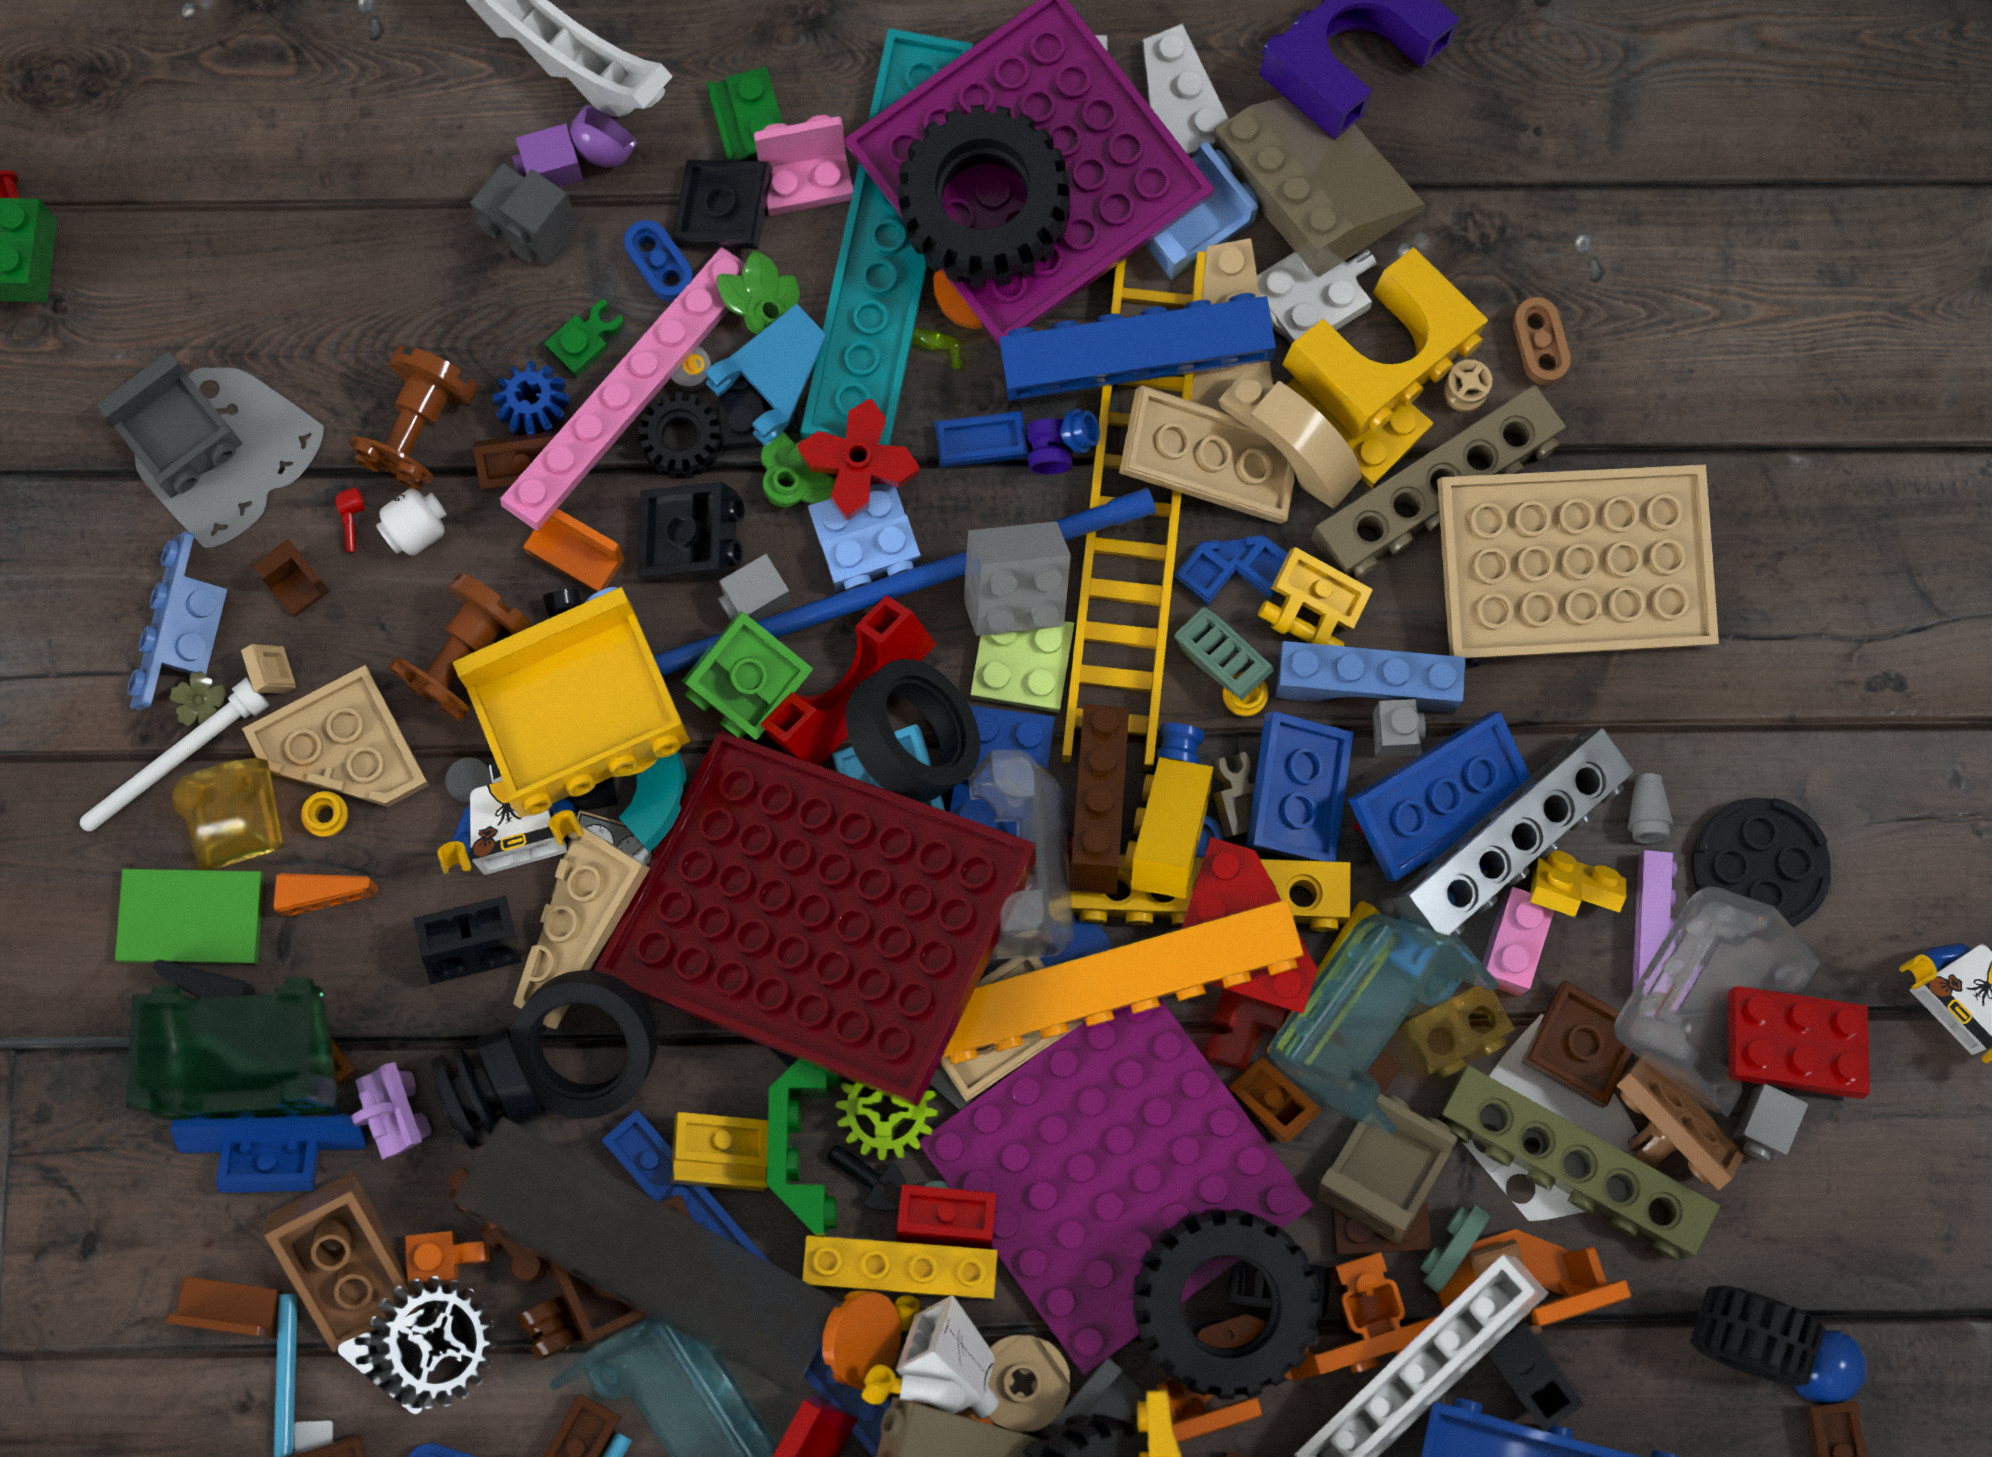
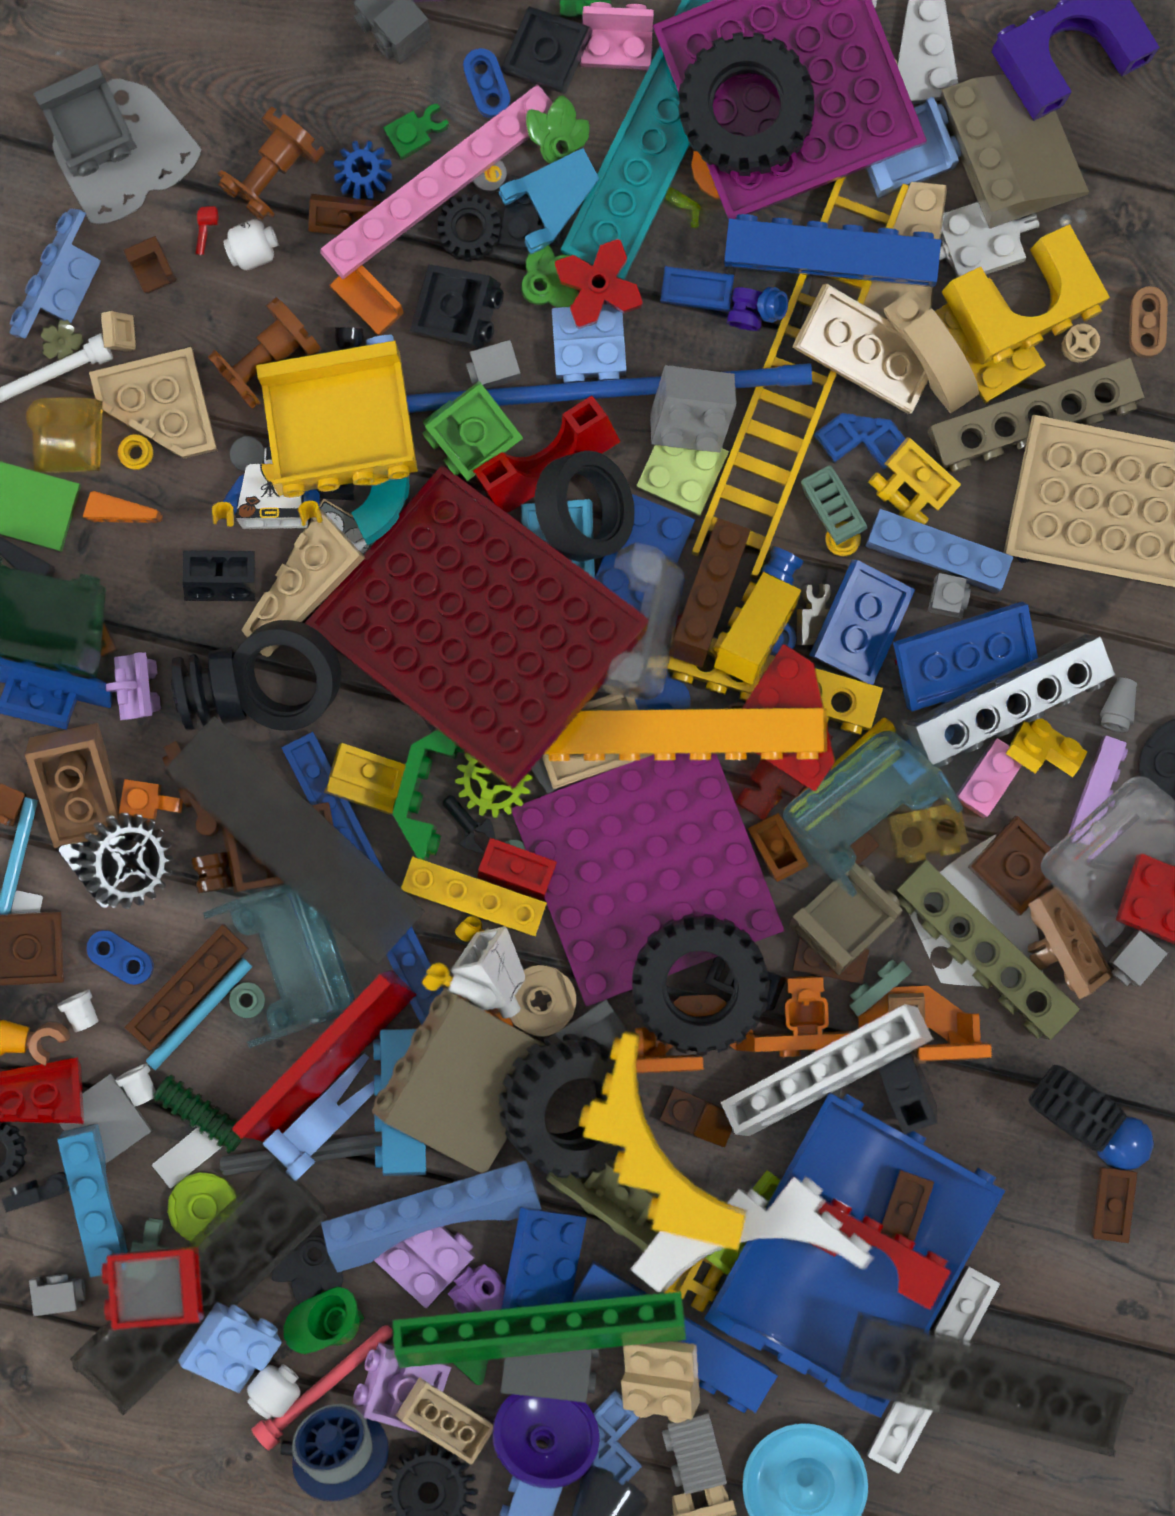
camera: 20 degrees right, 10 degrees up
(861, 1336) = (433, 939): orange tile -> none

